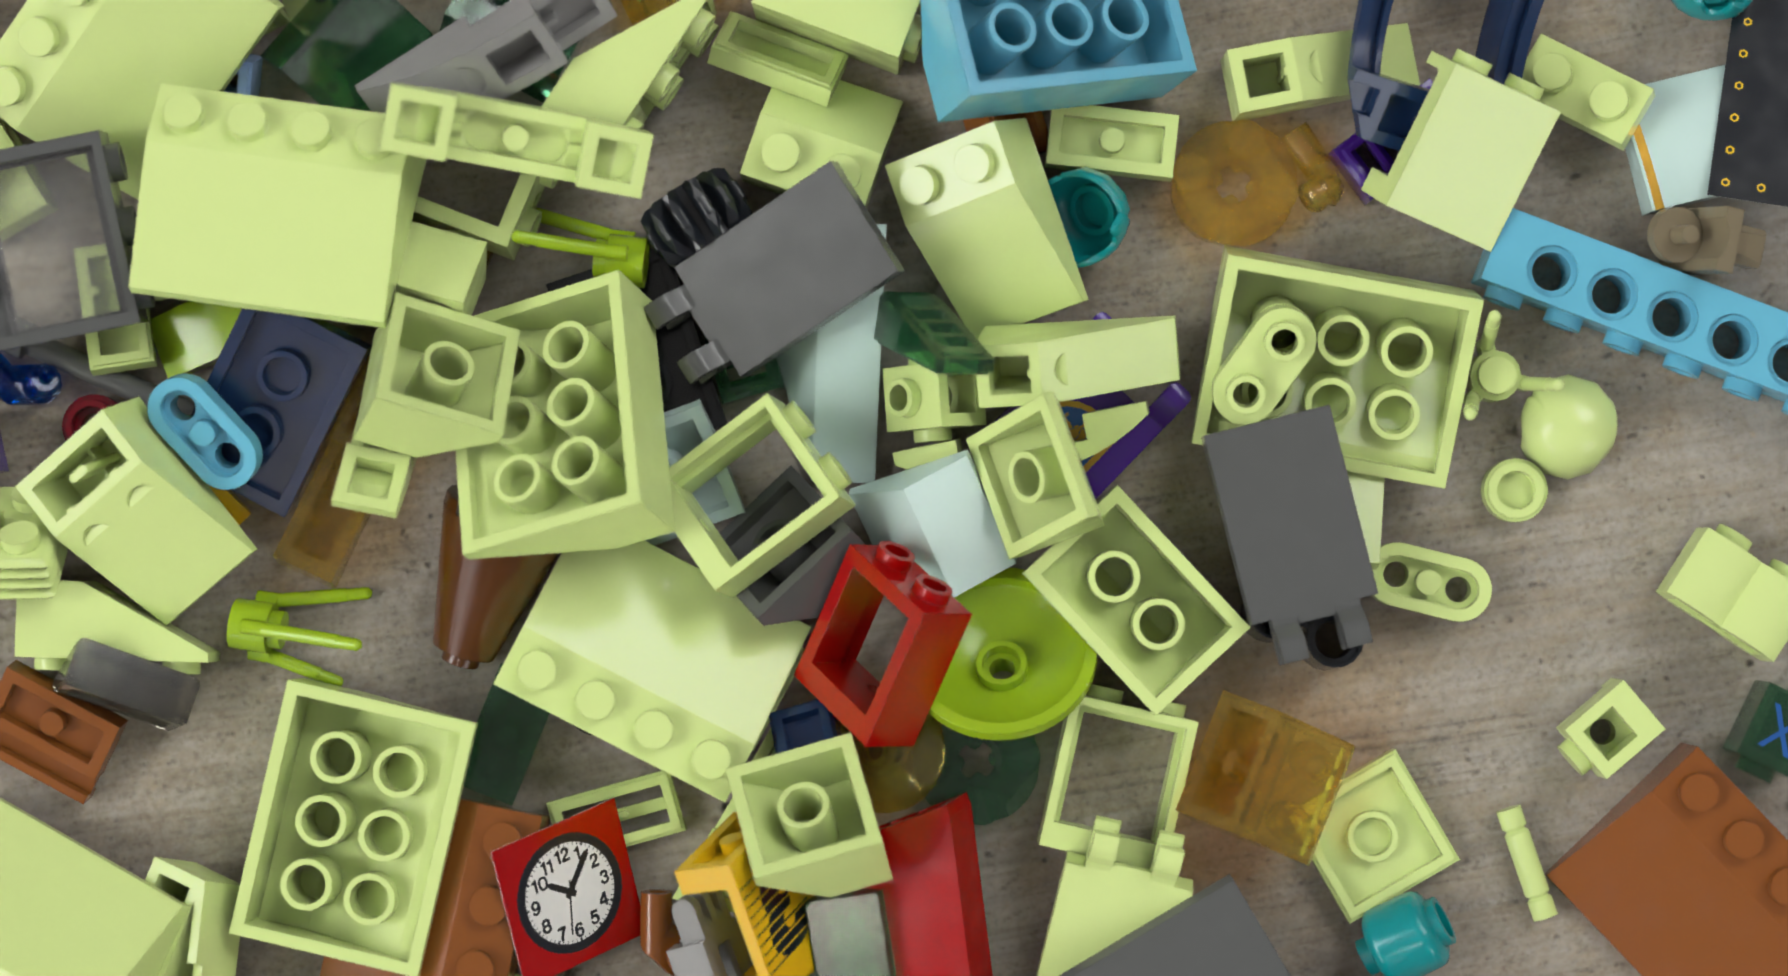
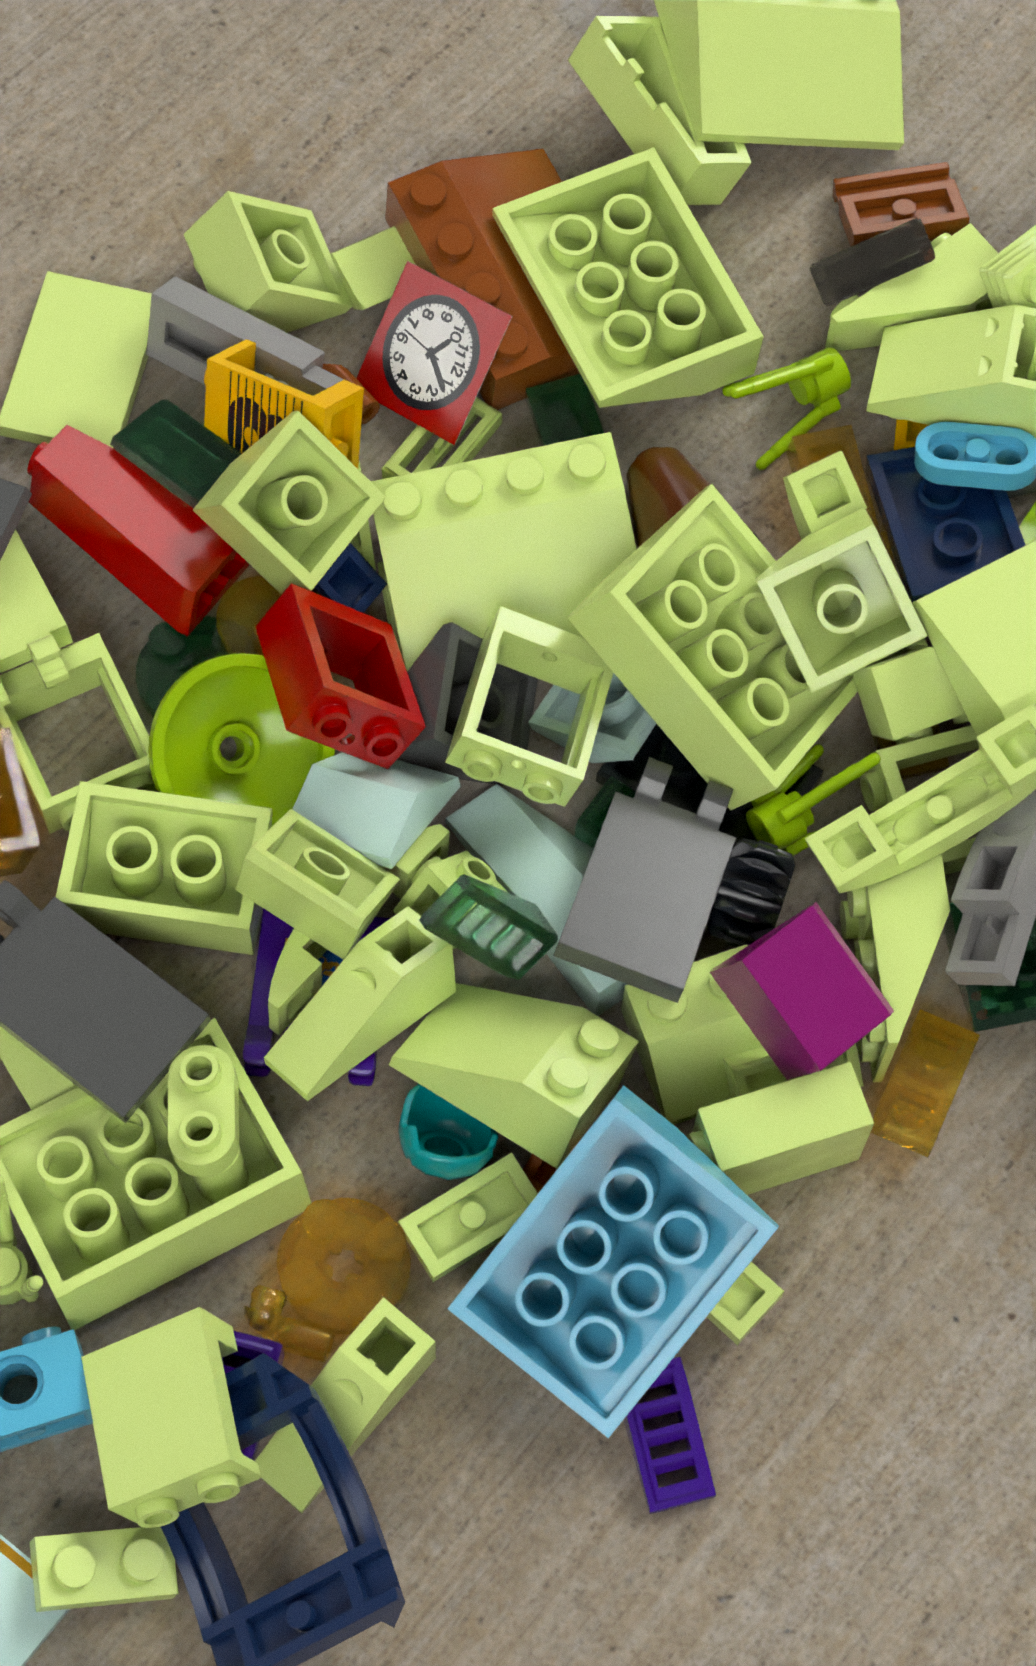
camera: 140 degrees right, 20 degrees down
(742, 80) = (802, 993): none -> magenta slope

